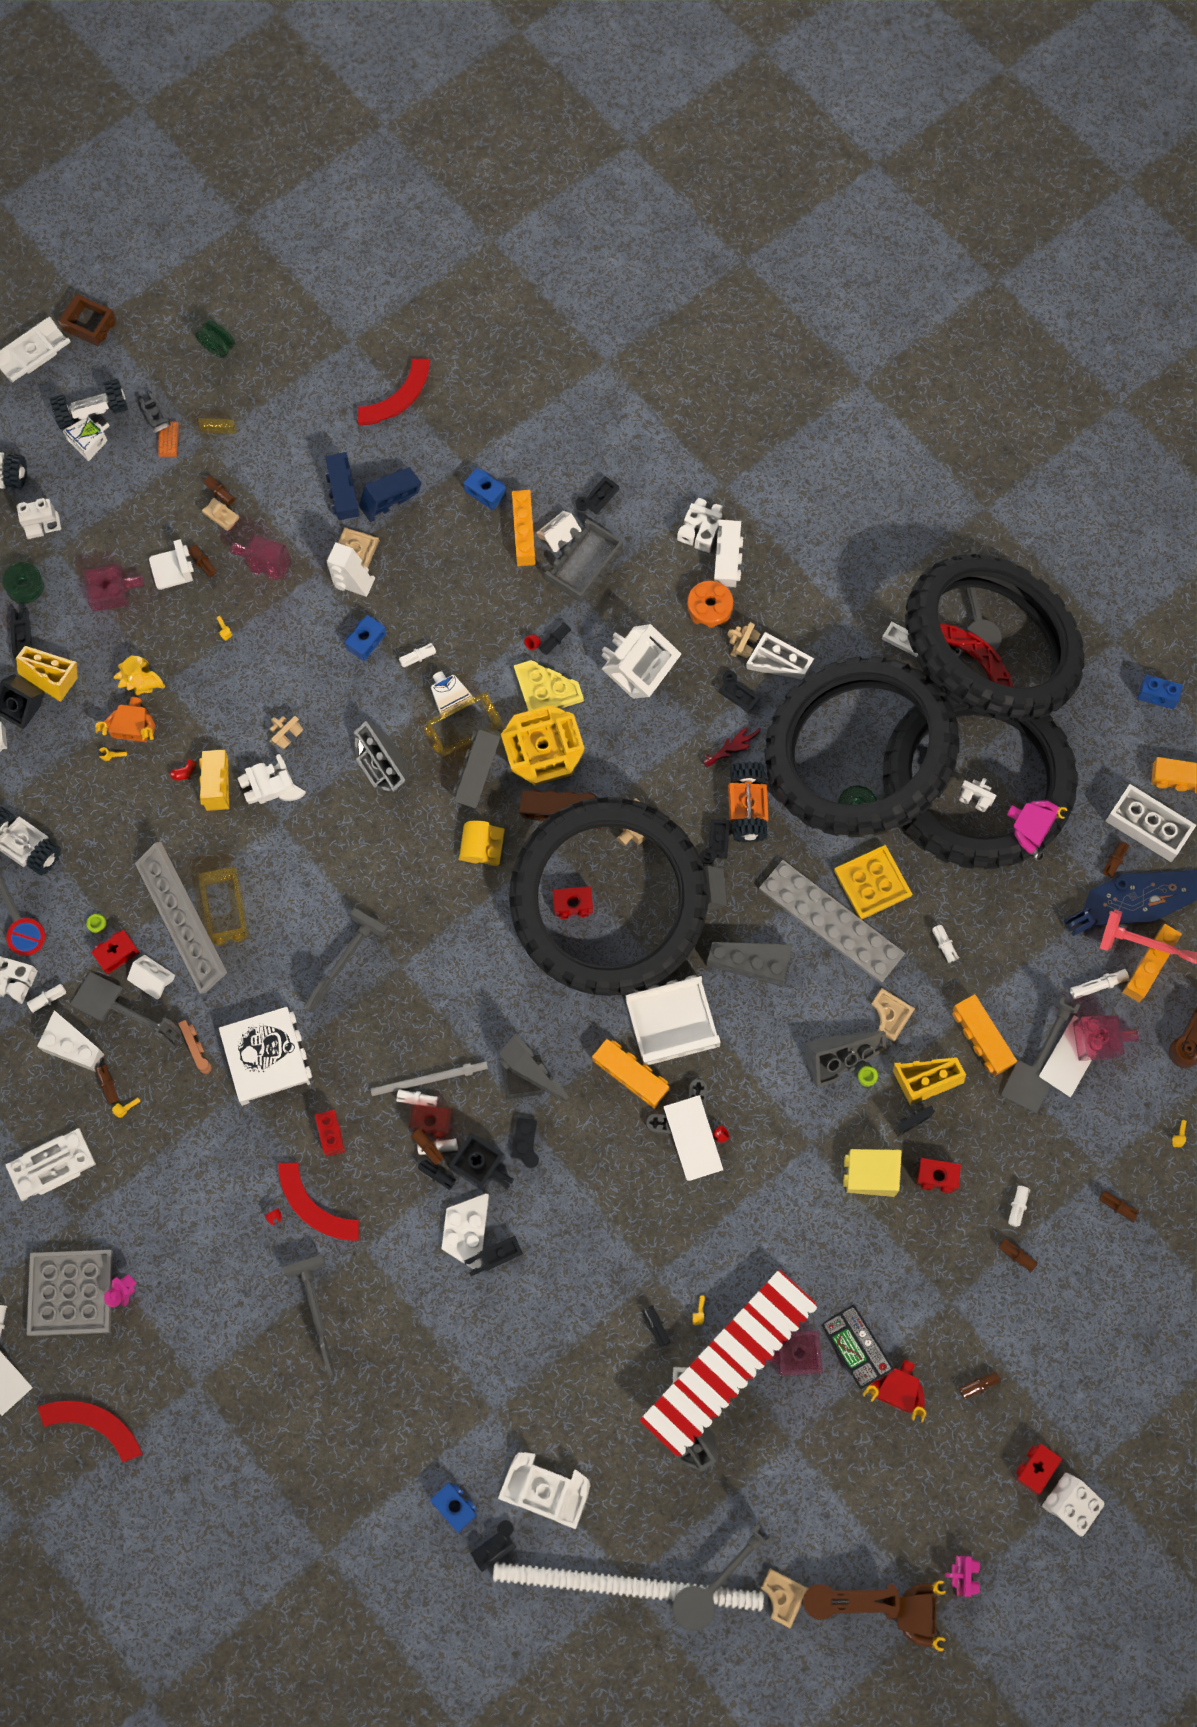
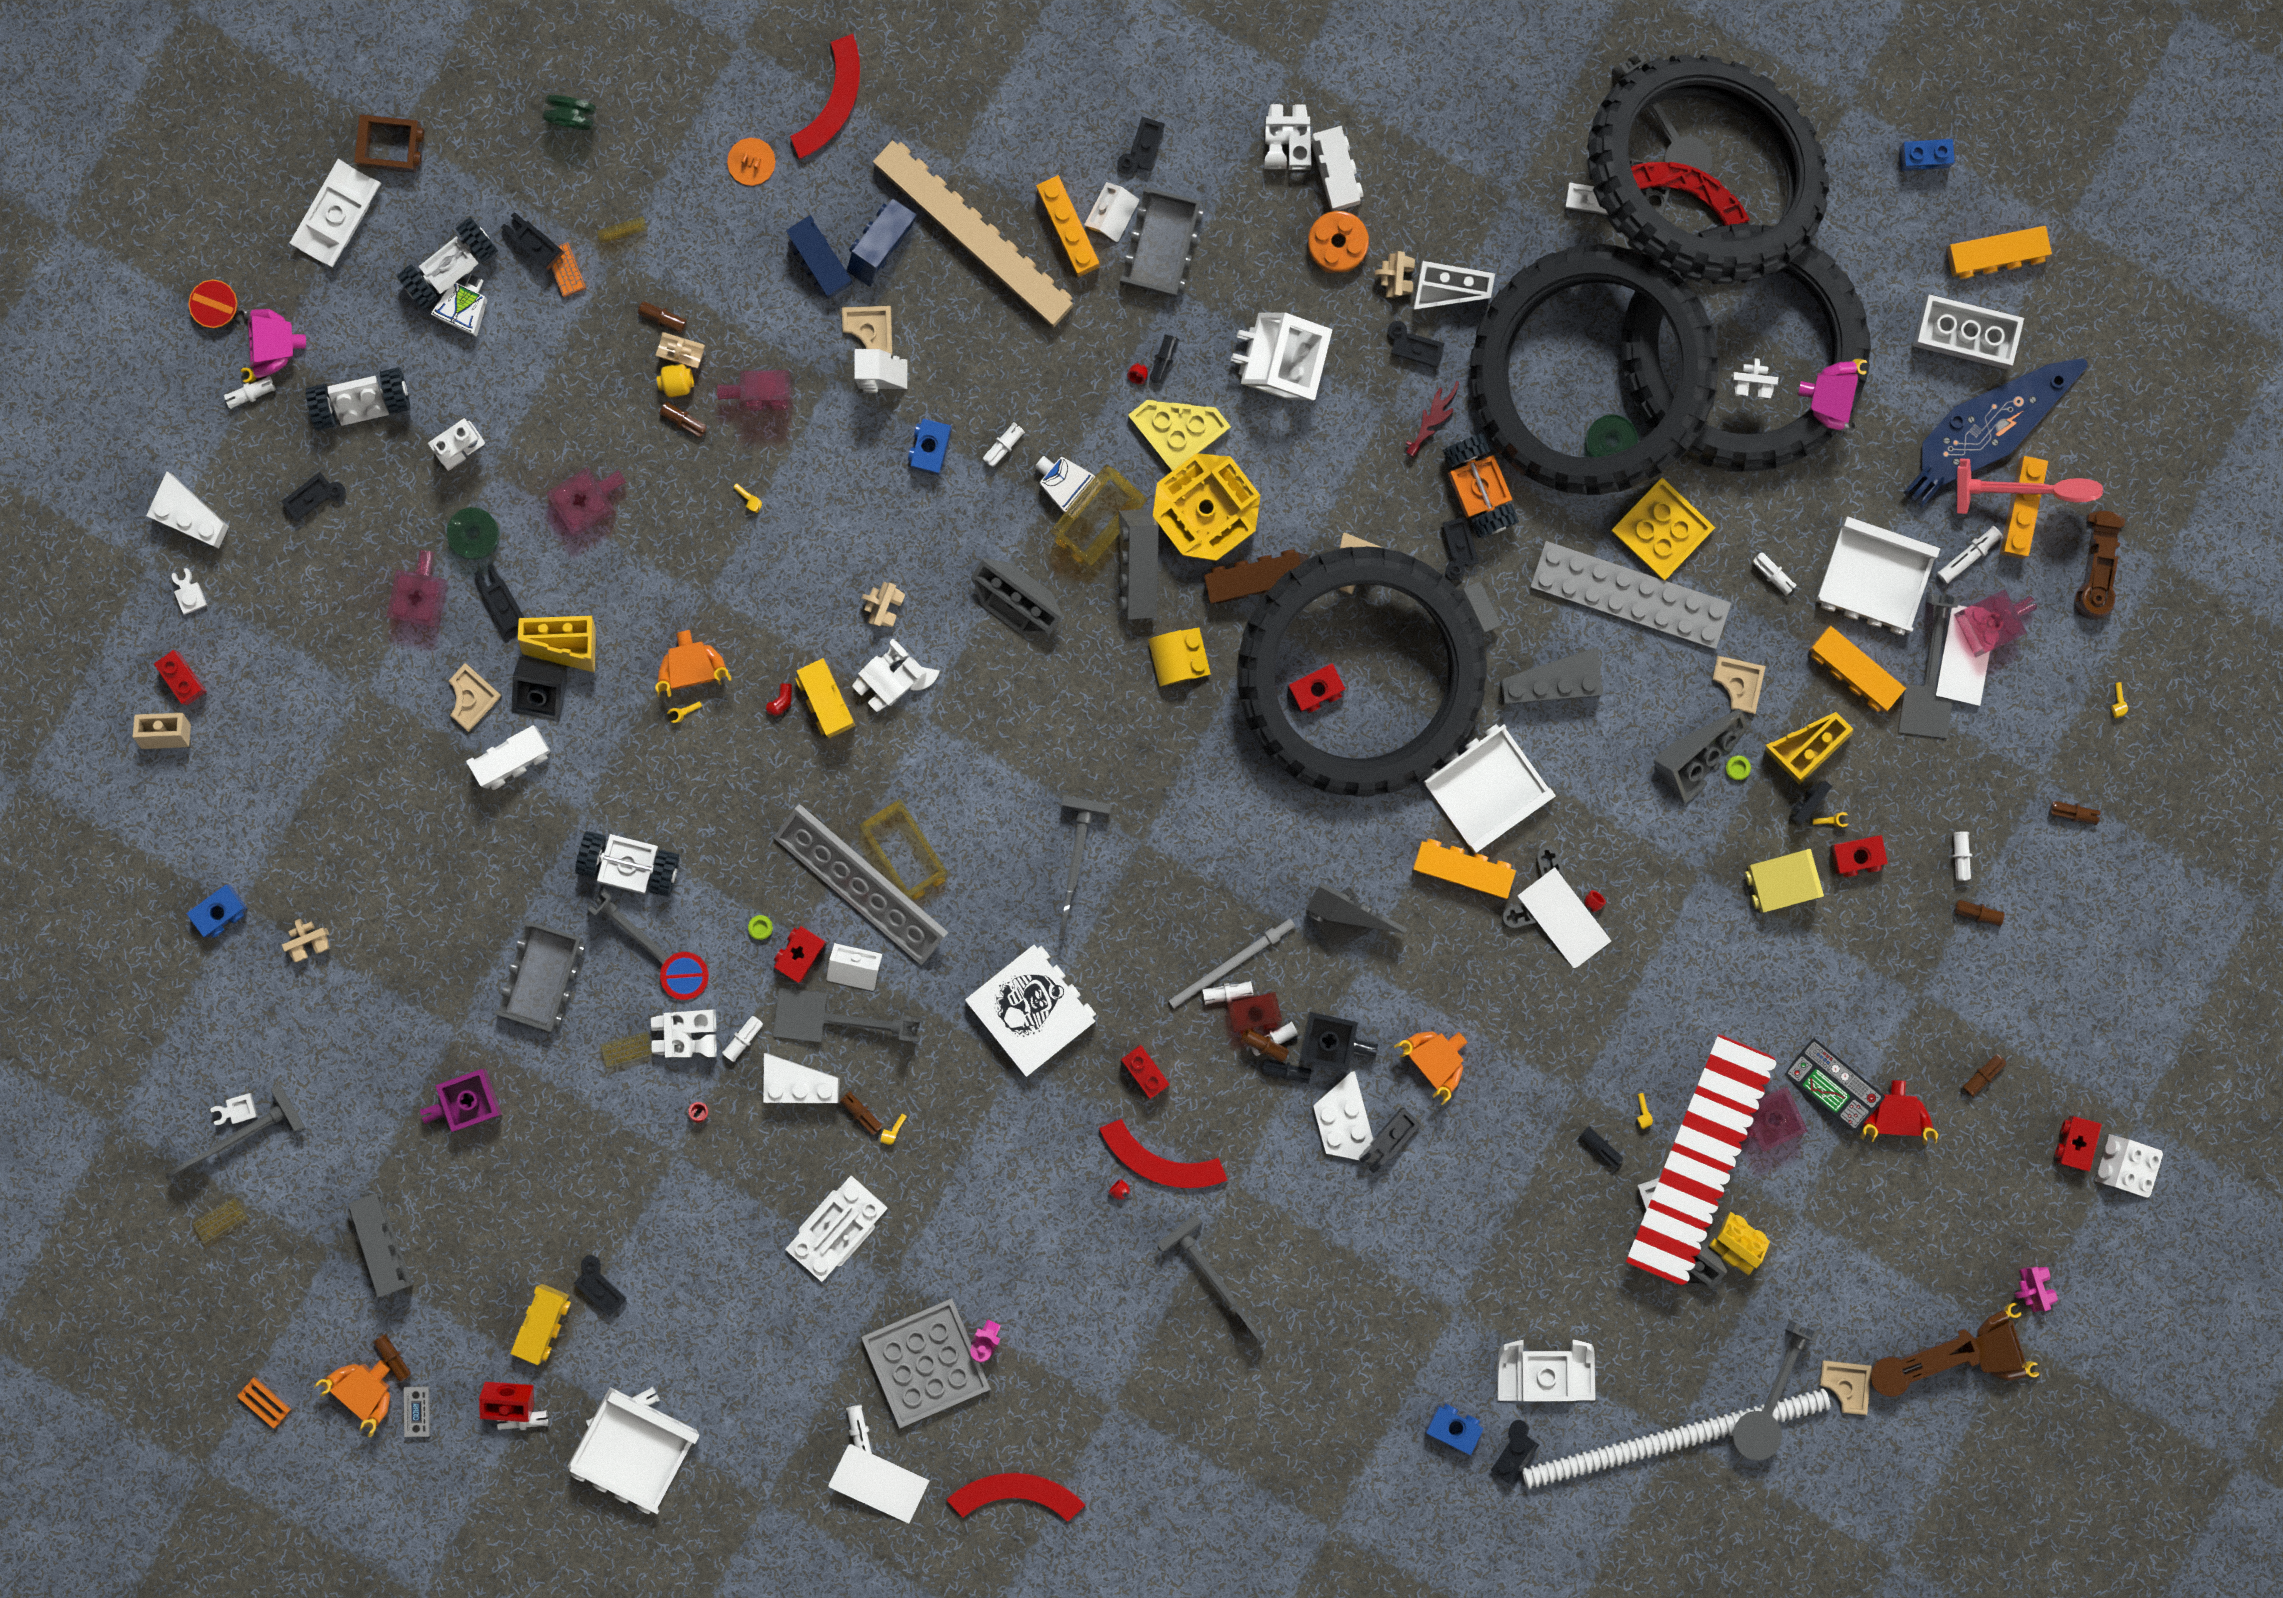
camera: 25 degrees left, 15 degrees up
(137, 676) = (671, 603): yellow head -> none
(172, 567) = (649, 443): white bracket -> none
(195, 1047) = (946, 1031): nougat plate -> none
(208, 532) = (675, 380): none -> yellow head
(325, 416) = (751, 161): none -> orange piece
(456, 511) = (973, 234): none -> tan brick
(489, 497) = (1008, 200): blue brick -> none
(524, 1142) = (1371, 995): black hinge -> none
(554, 1207) = (1436, 1059): none -> orange torso
(738, 1443) = (1741, 1243): none -> yellow plate
(926, 1142) = (1830, 820): none -> yellow hand
(1023, 973) = (1876, 575): none -> white panel
(1116, 859) = (1940, 390): reddish brown axle -> none

